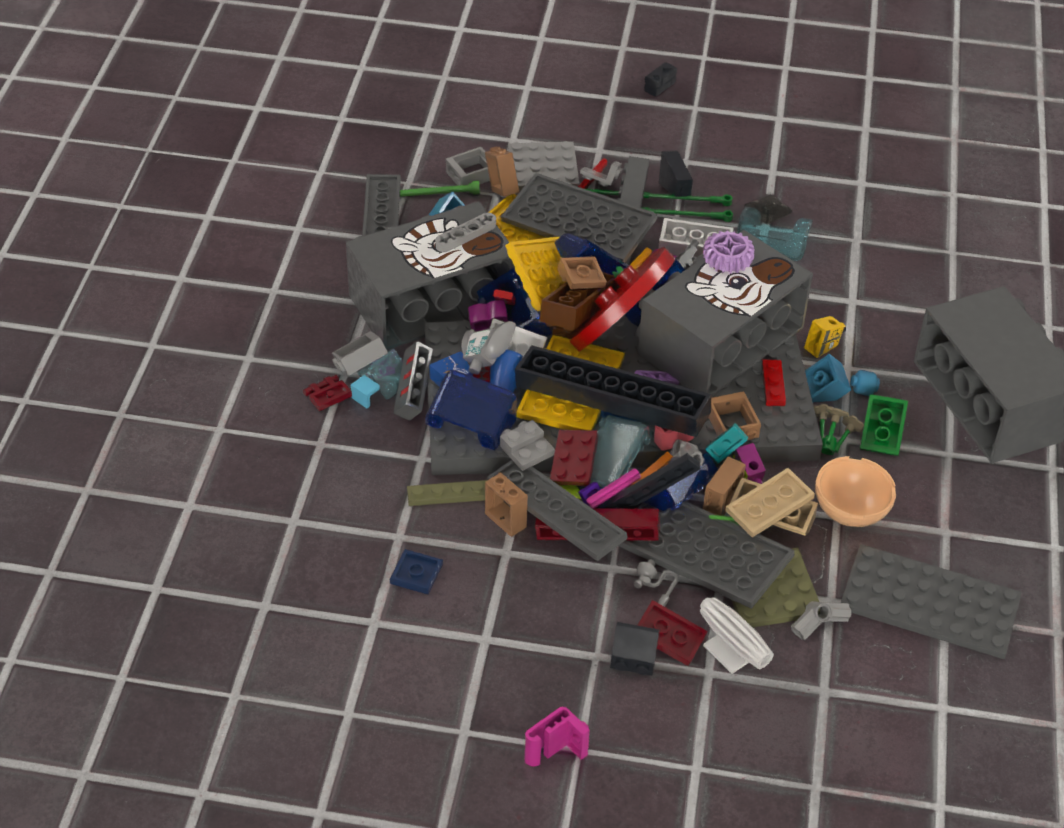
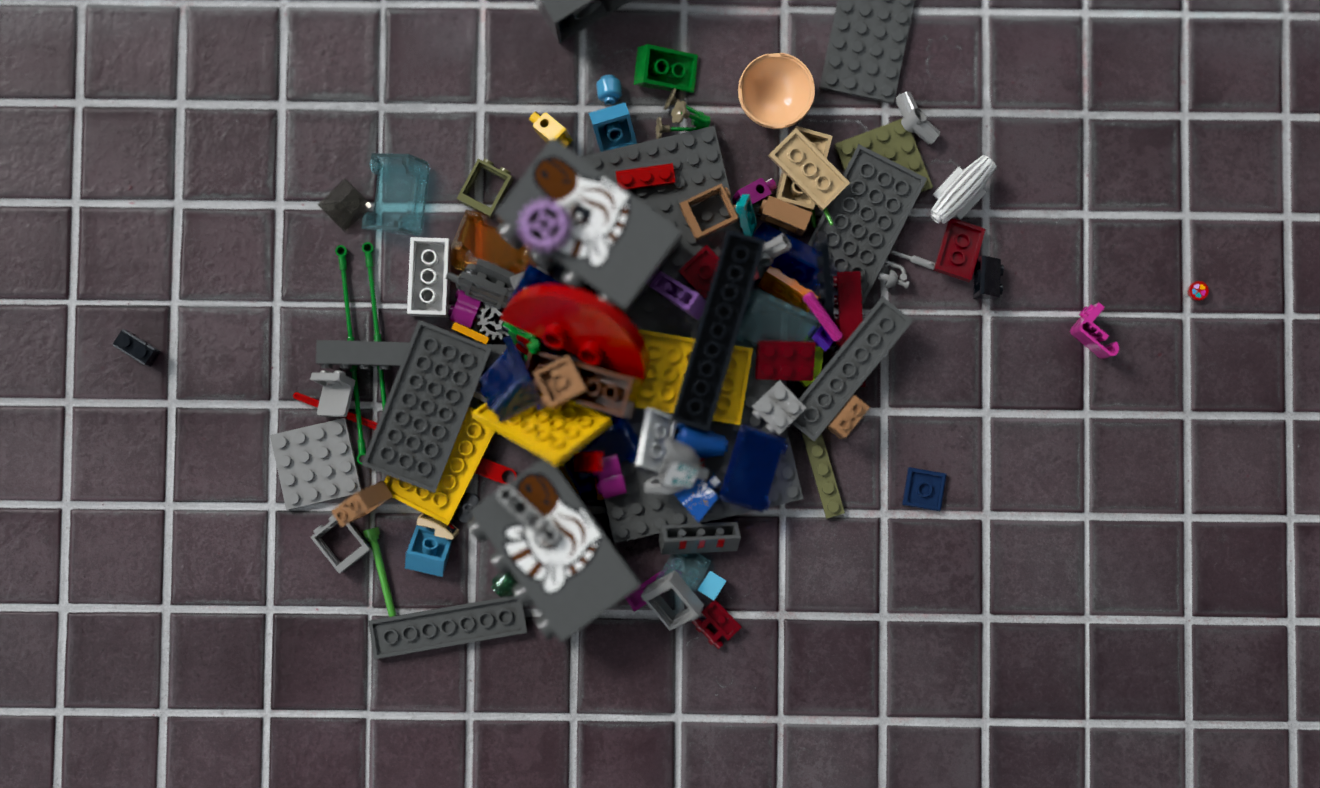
camera: 100 degrees left, 40 degrees up
(674, 174) = (327, 310): black slope -> none

